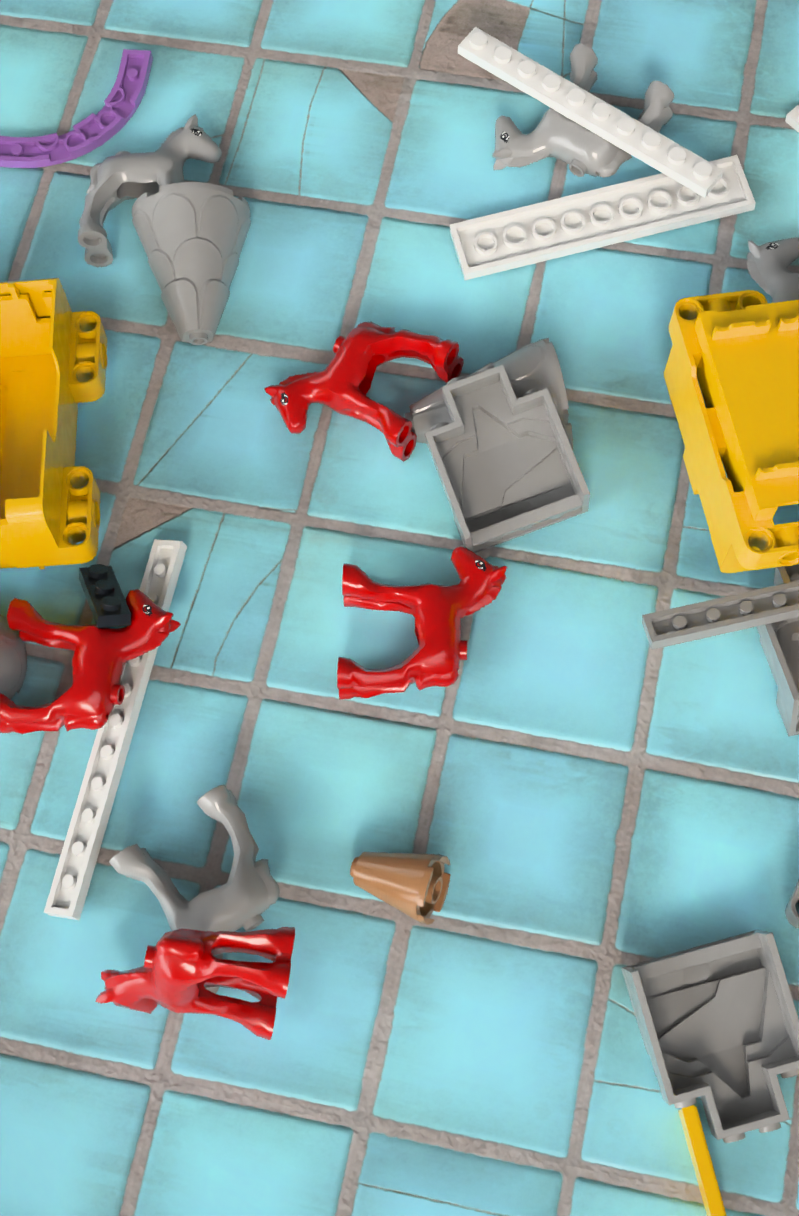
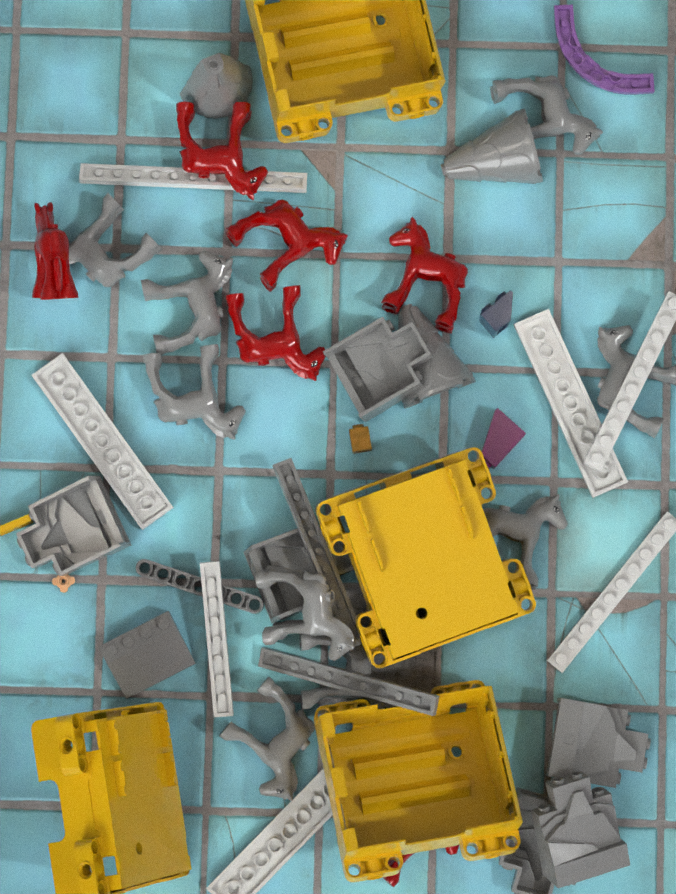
camera: 70 degrees right, 15 degrees up
(104, 596) = (262, 154): black plate -> none
(253, 570) = (295, 235): none -> red animal
(333, 738) = (201, 301): none -> light grey animal
(404, 881) = (126, 353): medium nougat cone -> none
(447, 286) = (497, 316): none -> slope
(518, 774) = (195, 403): none -> light grey animal
(556, 953) = (102, 441): none -> white plate
(616, 520) = (360, 439): none -> pearl gold brick
(639, 315) = (500, 439): none -> magenta slope

